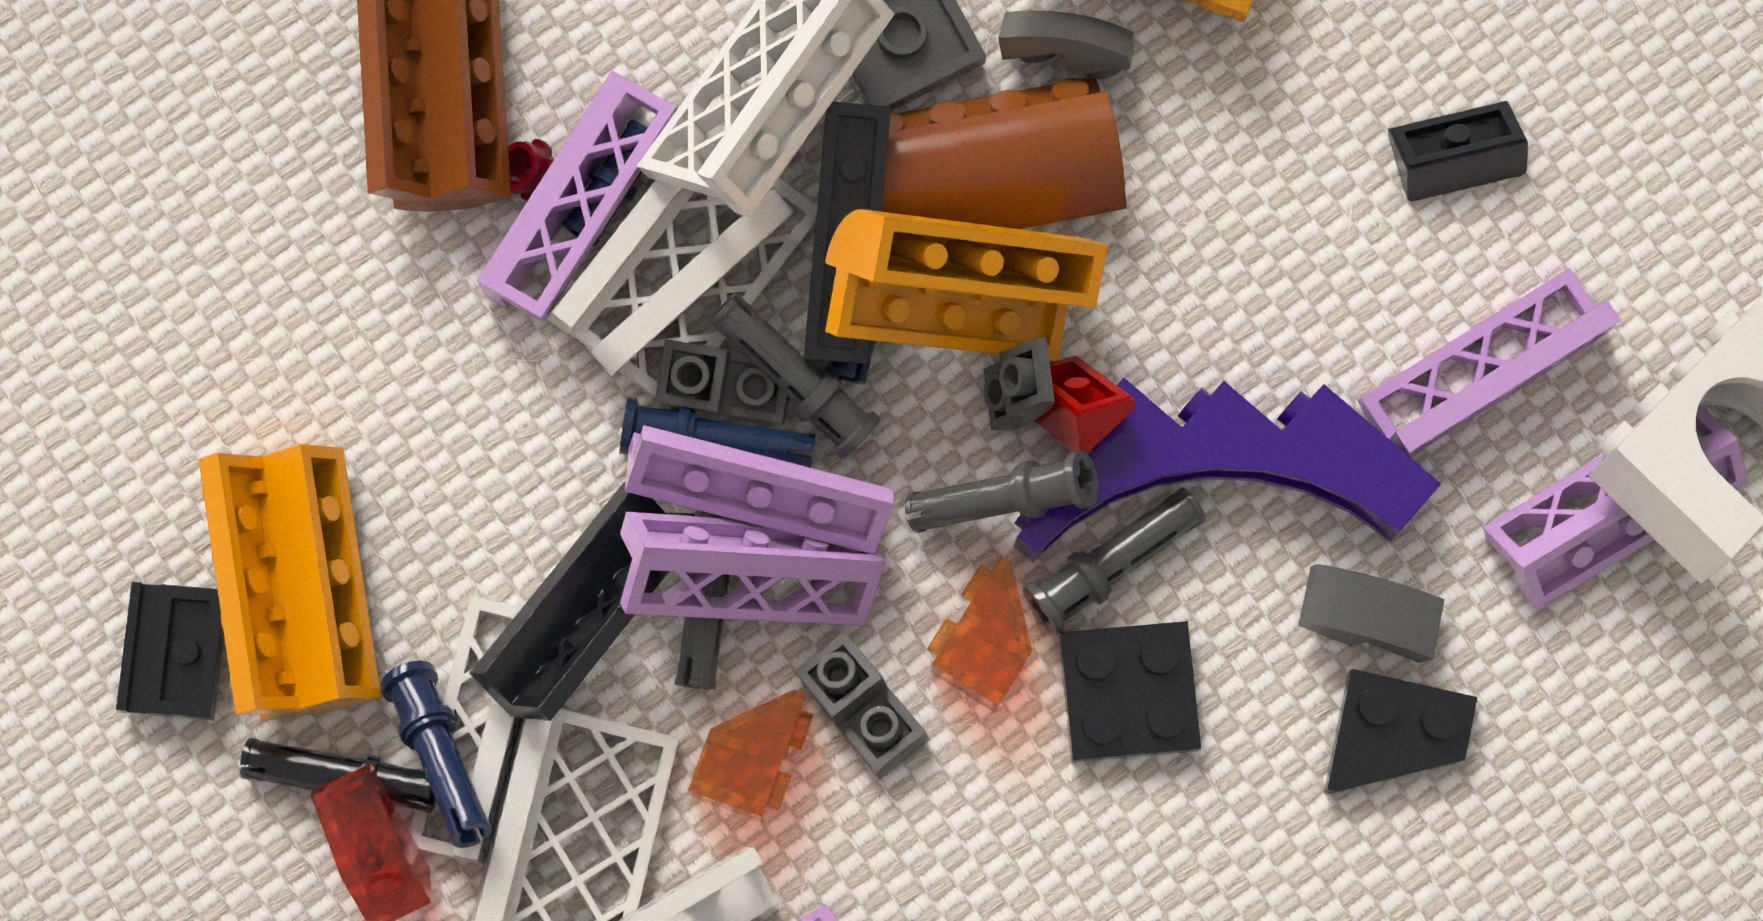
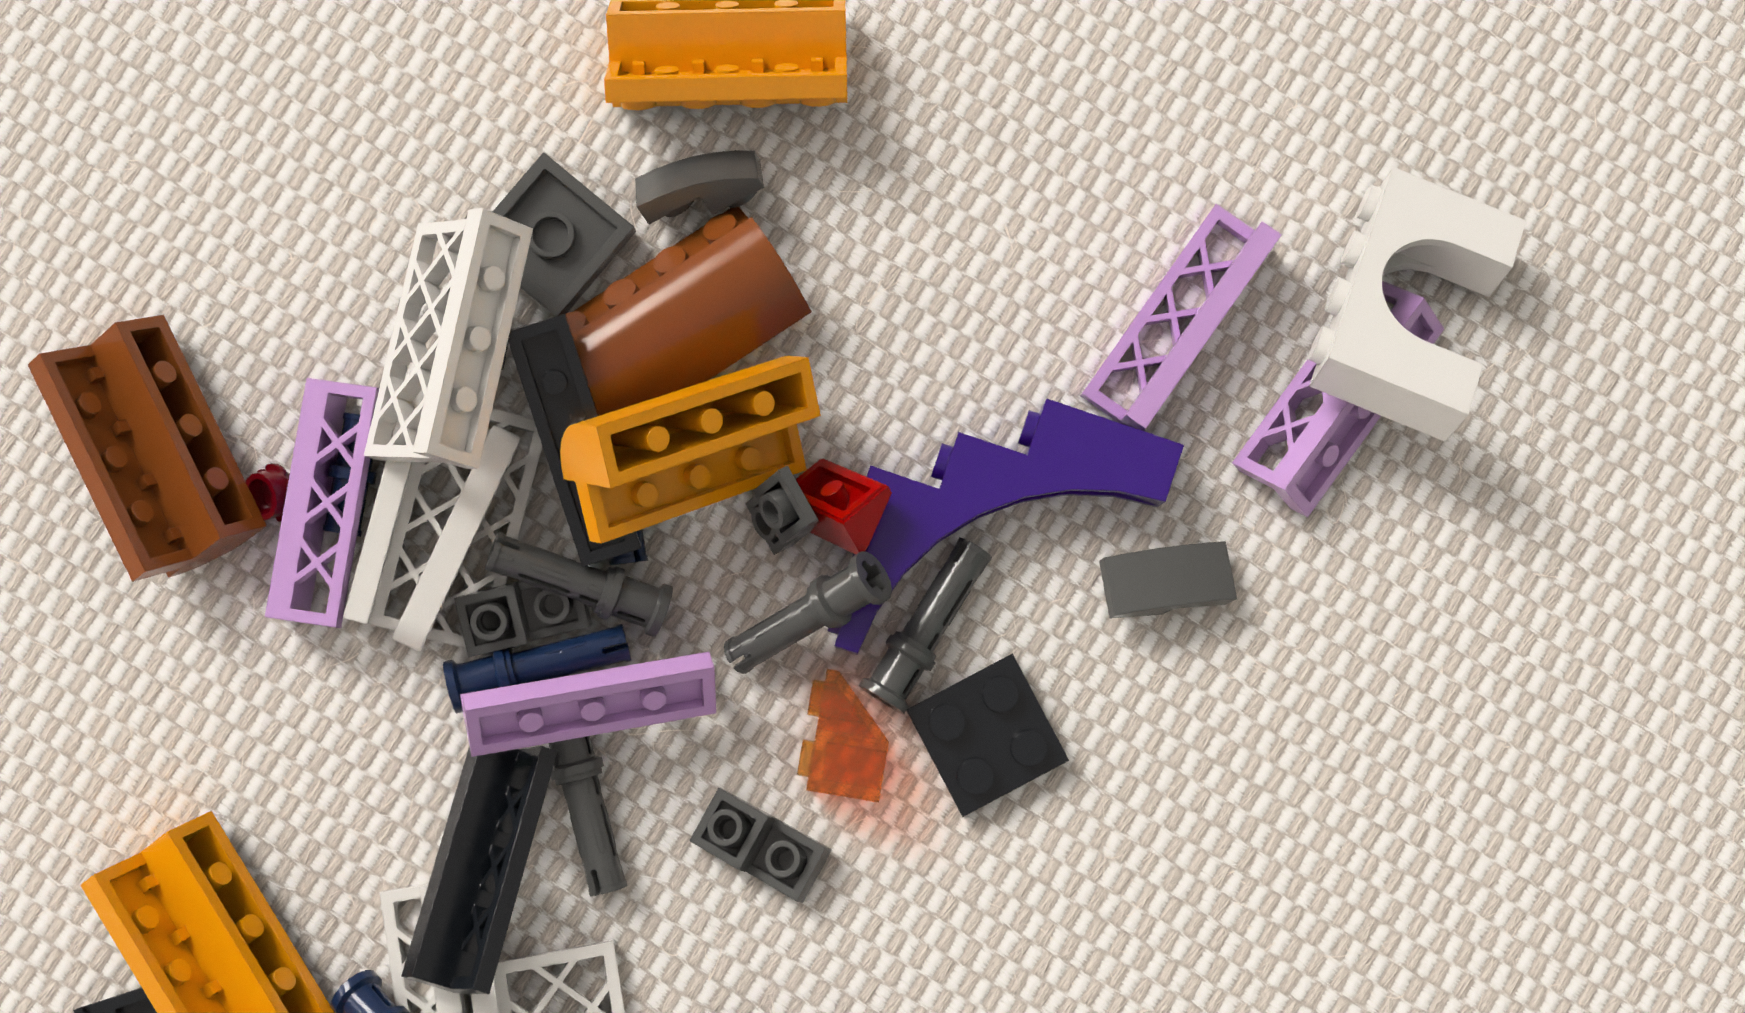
camera: 20 degrees left, 5 degrees up
(739, 548) = (566, 774): lavender fence -> none
(746, 757) = (678, 937): clear orange slope -> none
(1396, 730) = (1229, 673): black wing -> none
(1459, 151) = (1079, 138): black slope -> none

